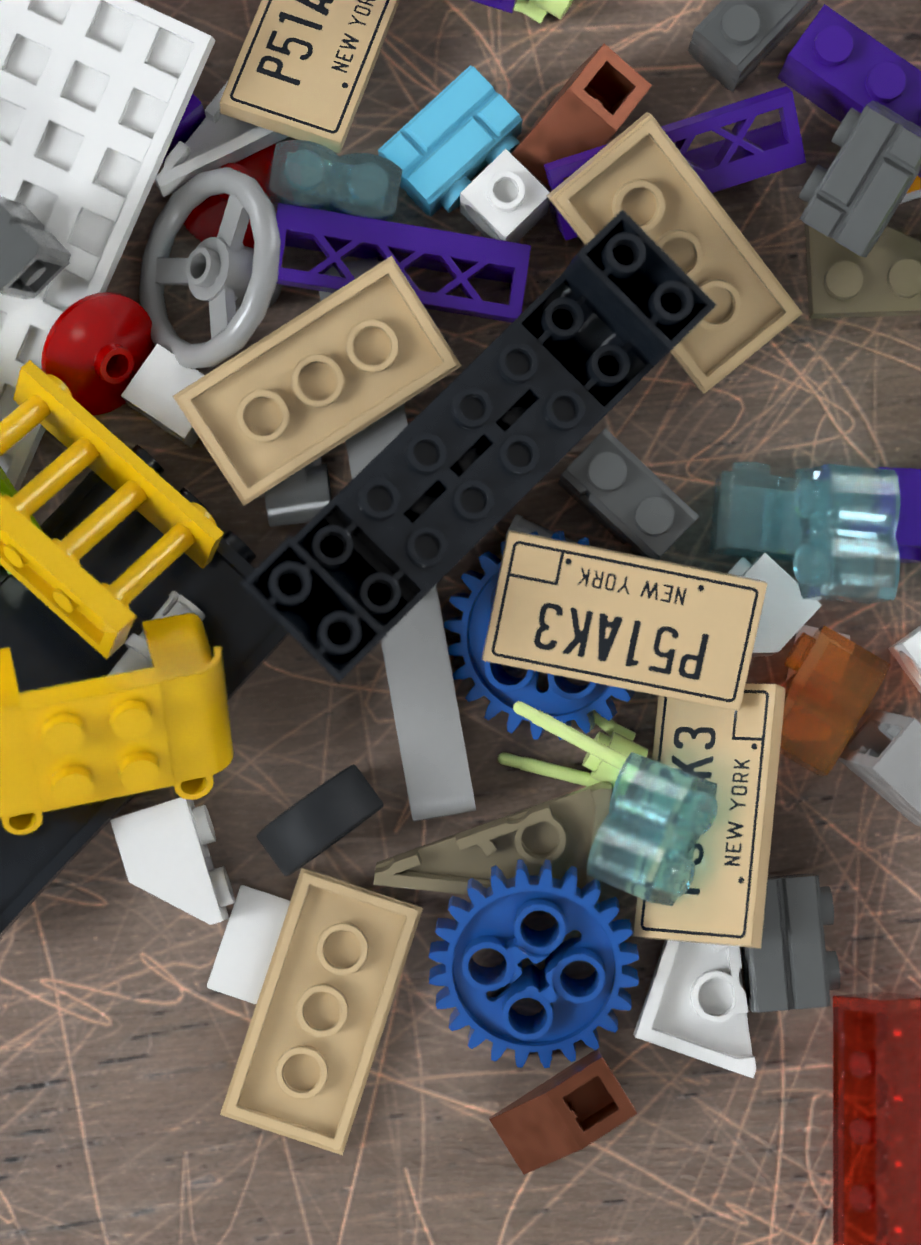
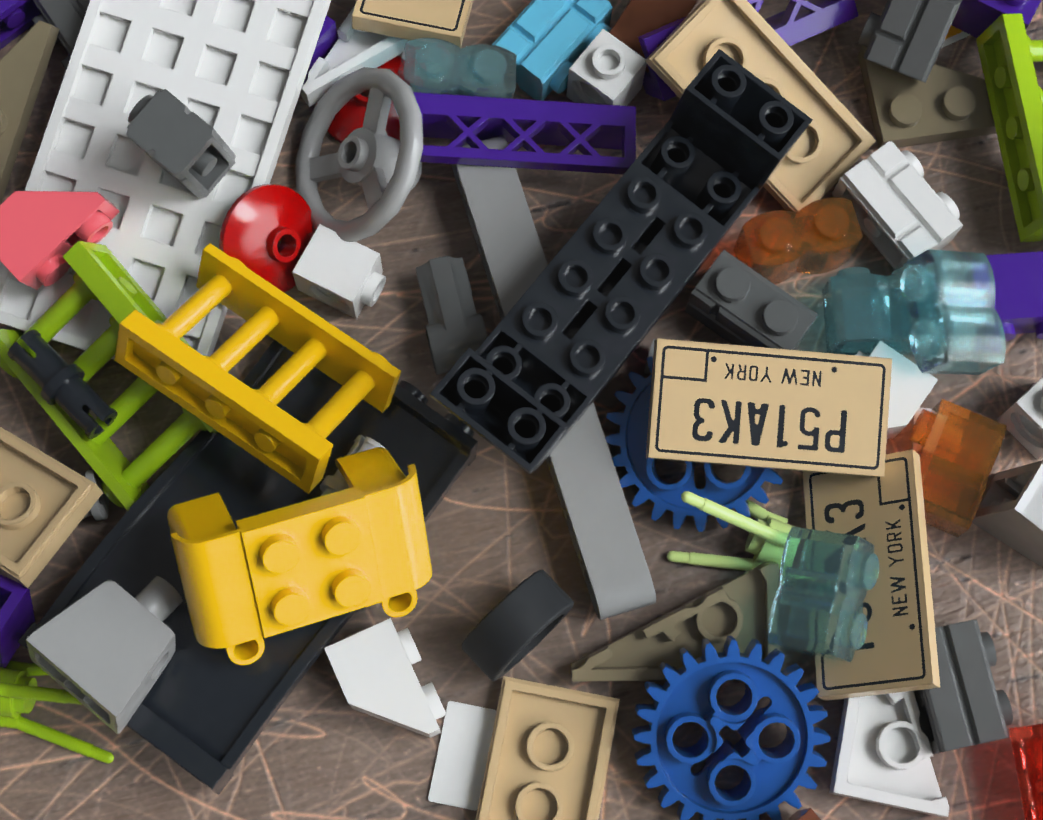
camera: 10 degrees left, 10 degrees down
(317, 380) = (465, 237): tan tile -> none
(710, 423) = (803, 242): none -> clear orange brick
(815, 394) = (898, 205): none -> white brick

